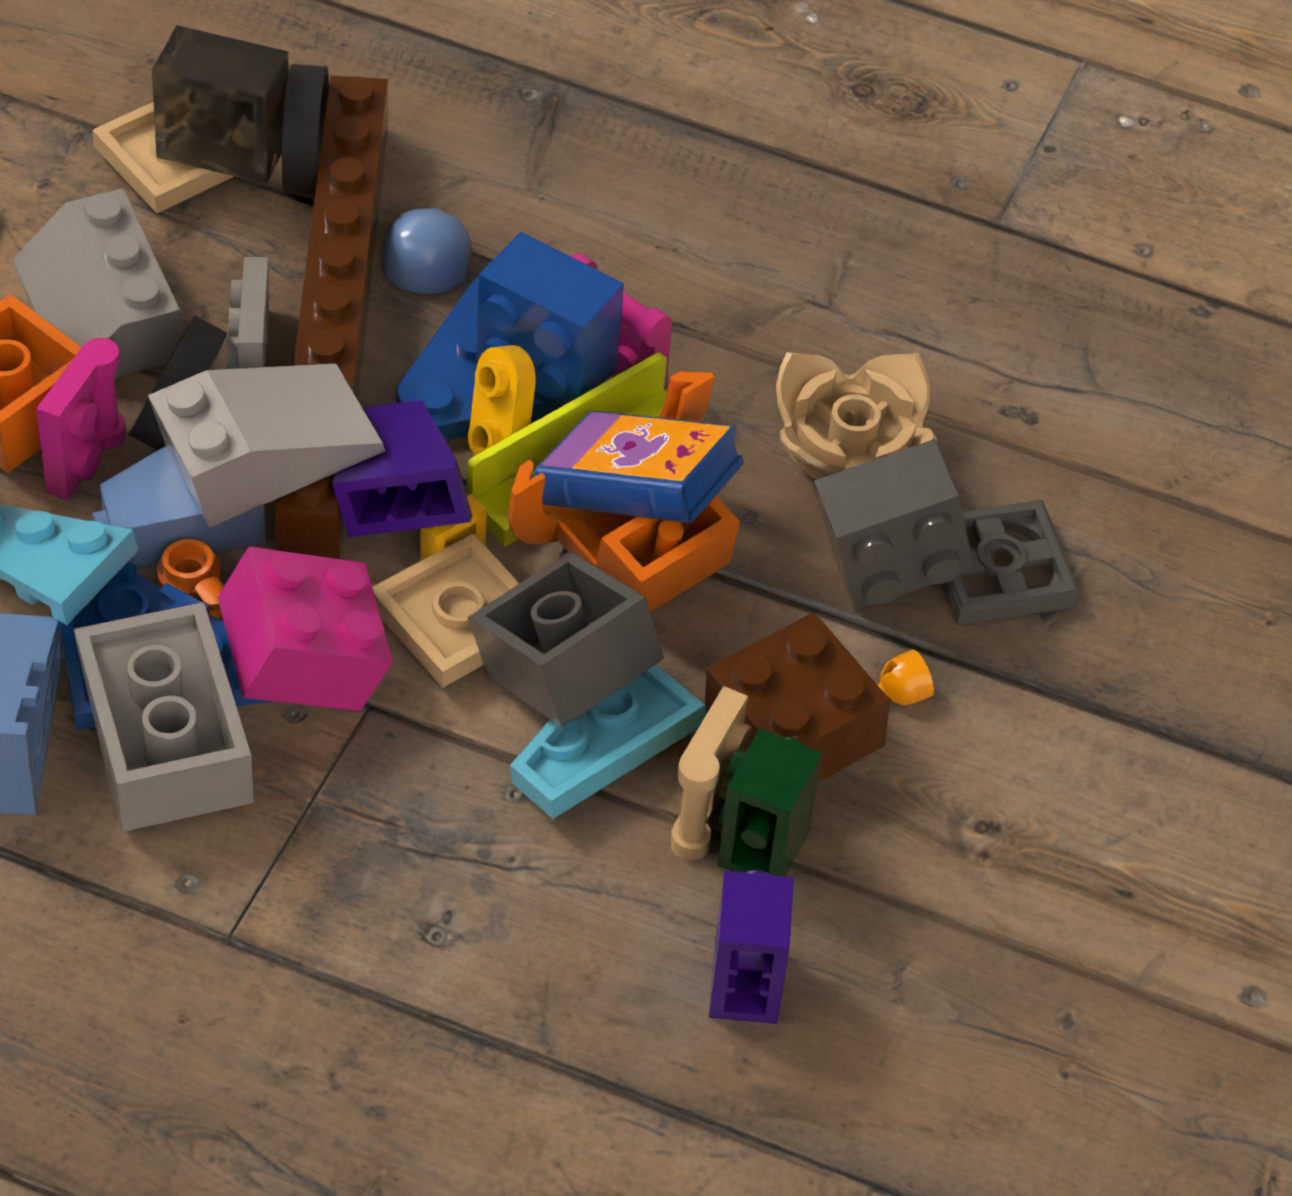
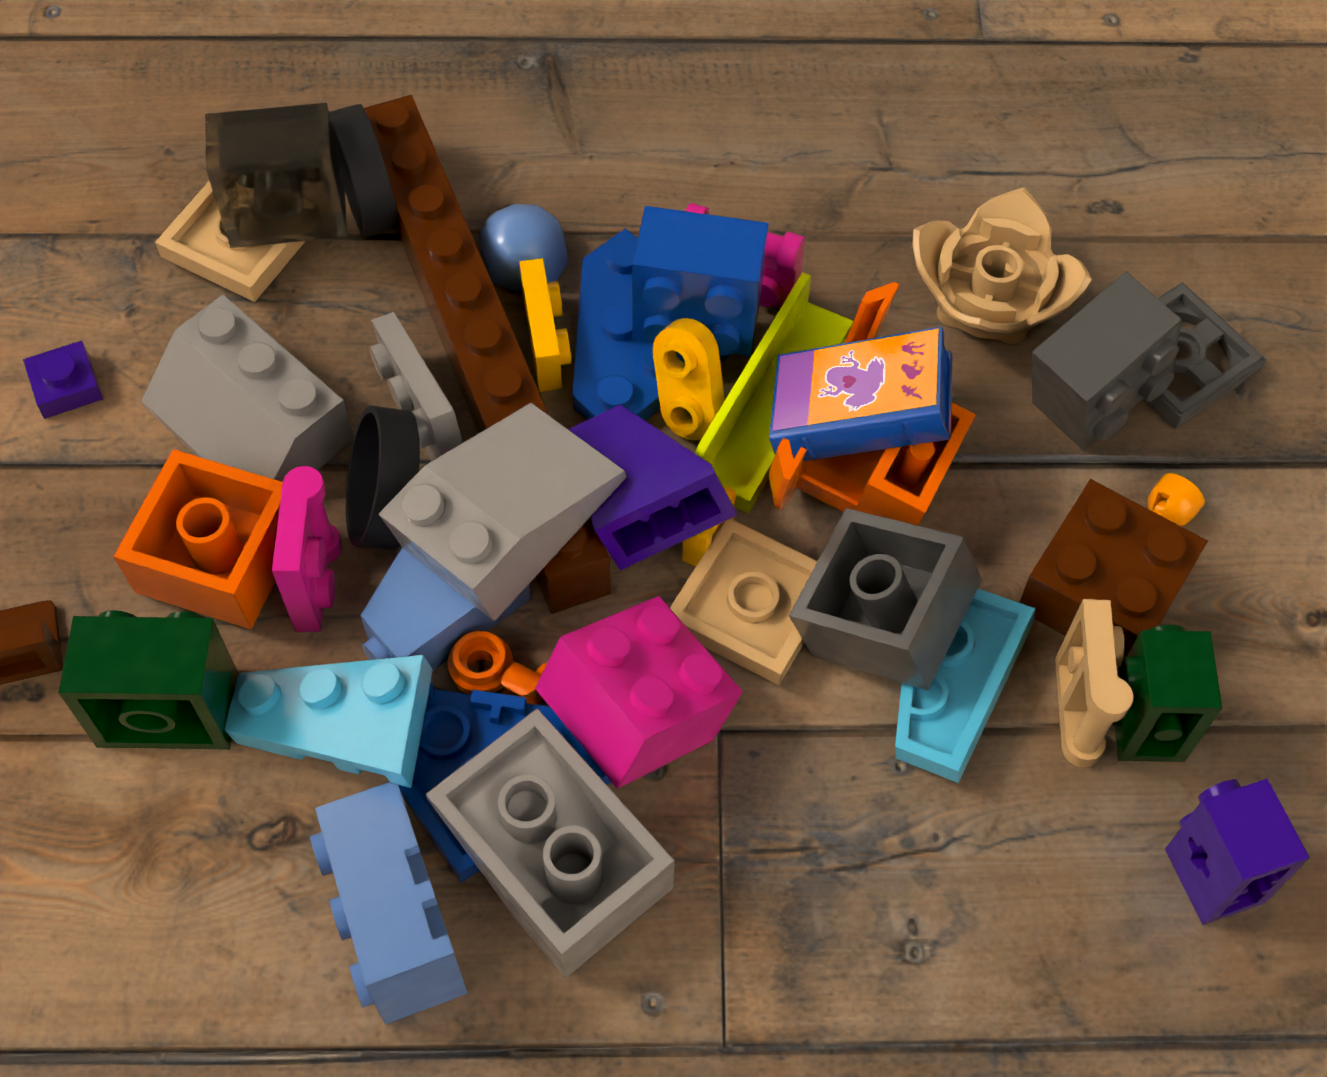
camera: 20 degrees left, 10 degrees up
(398, 331) = (541, 304): none -> yellow plate

